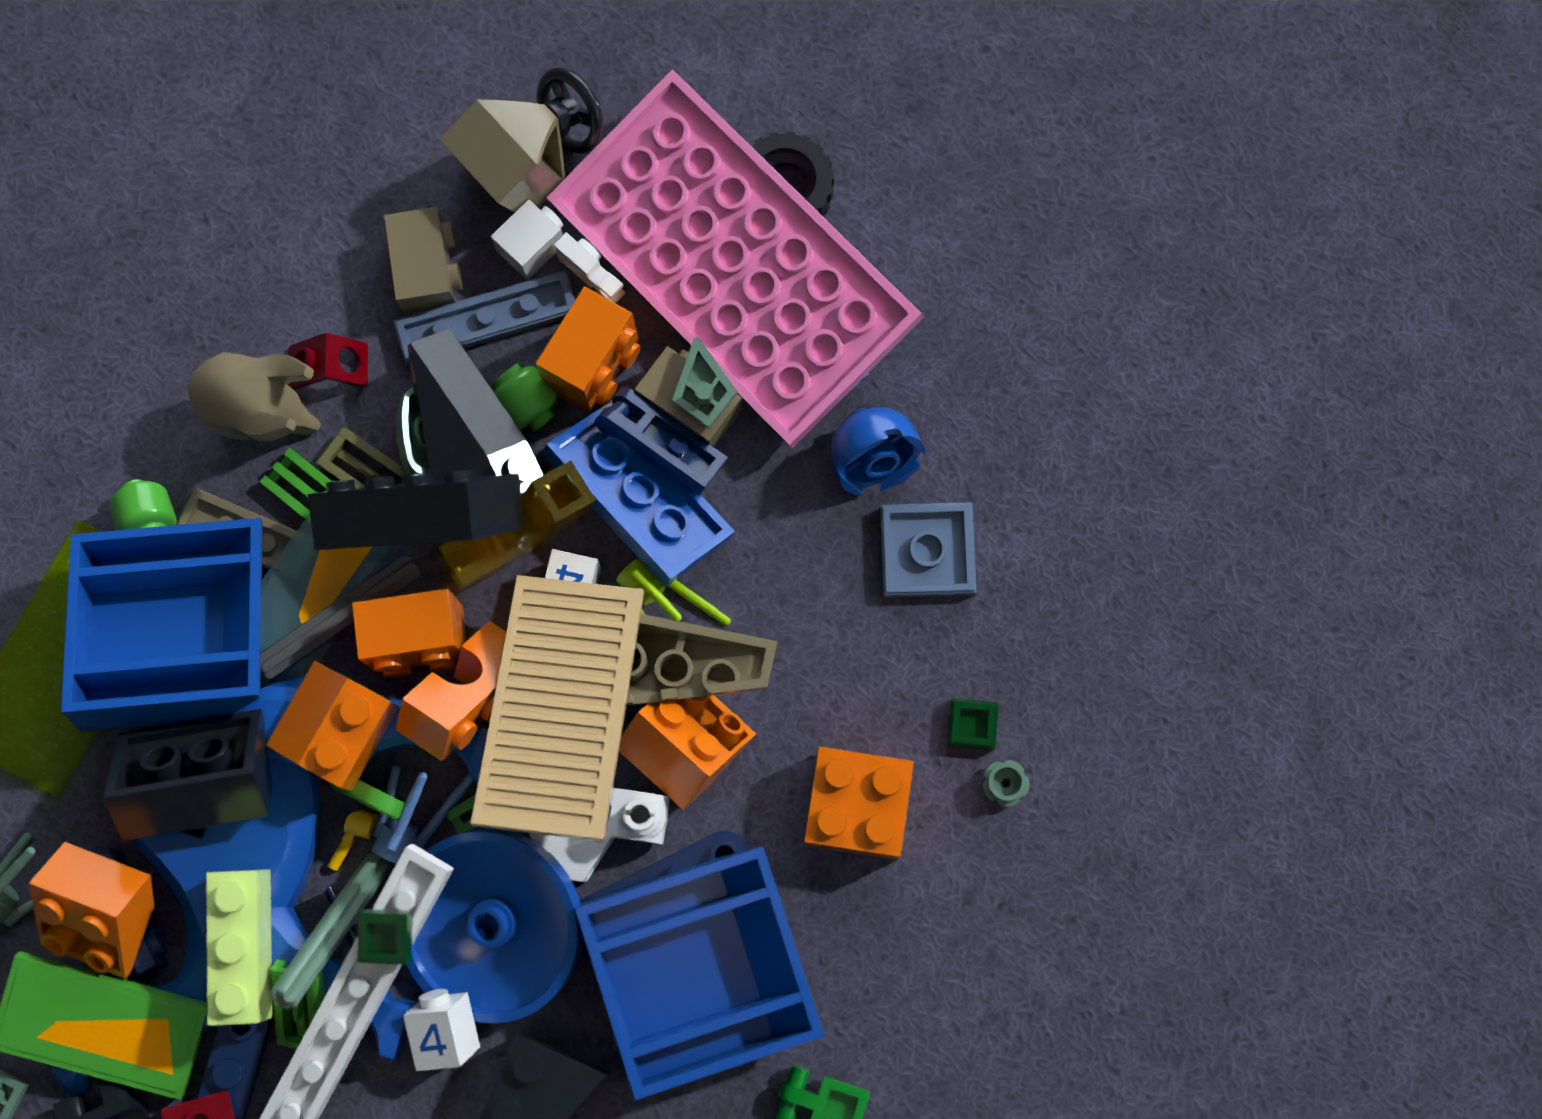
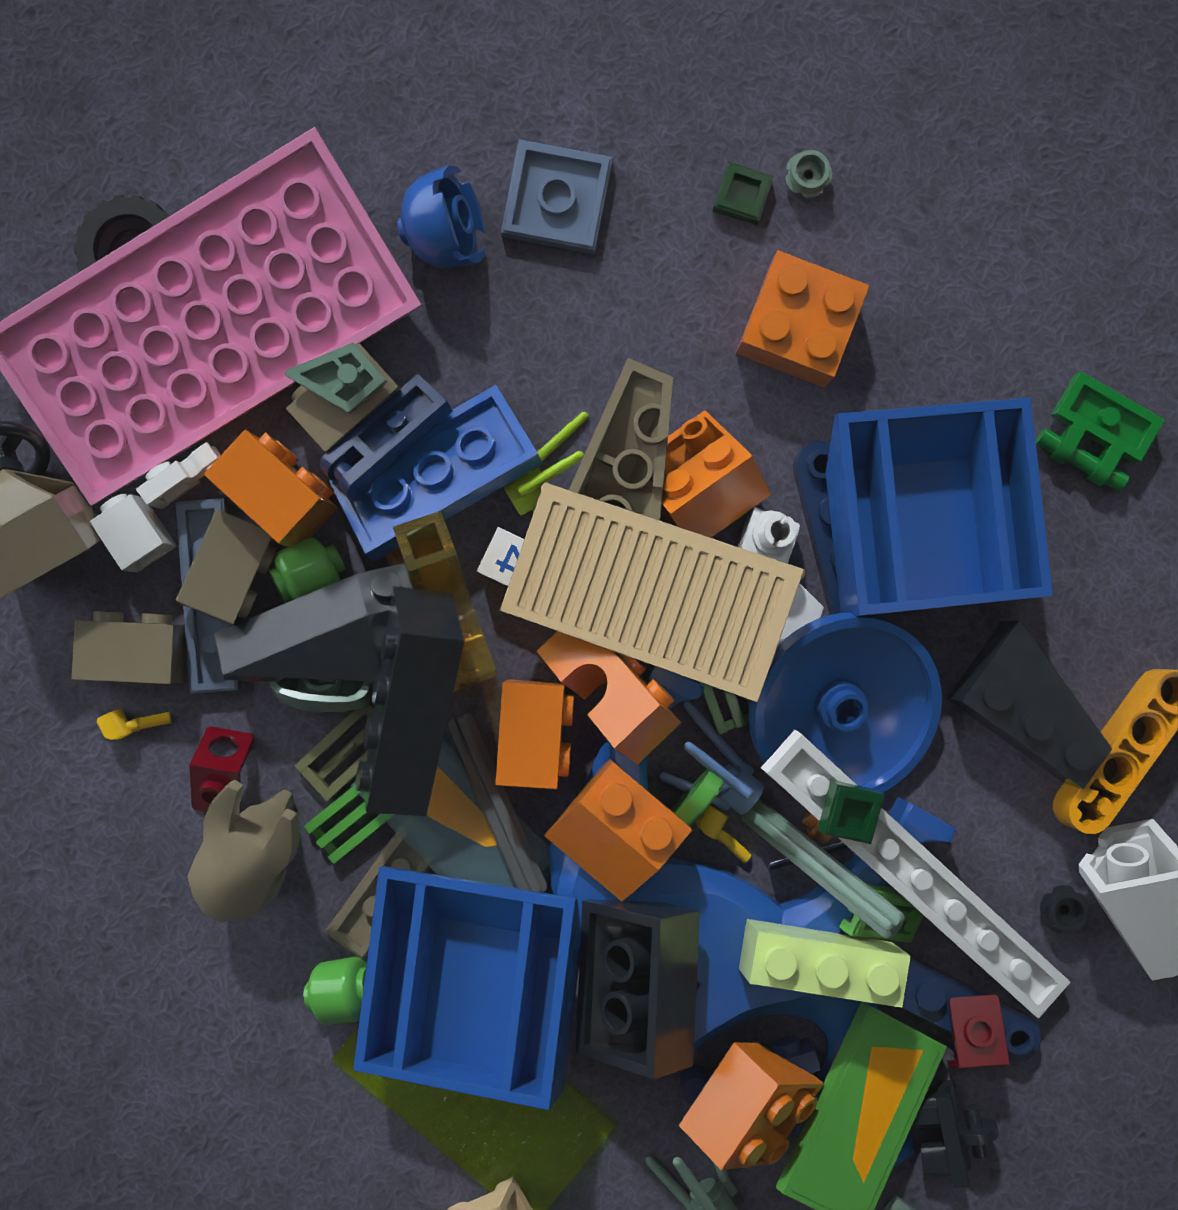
camera: 80 degrees left, 10 degrees up
(352, 263) = (116, 726): none -> yellow hand
(441, 1030) = (938, 776): white brick -> none
(508, 324) = (225, 568): none -> dark tan brick

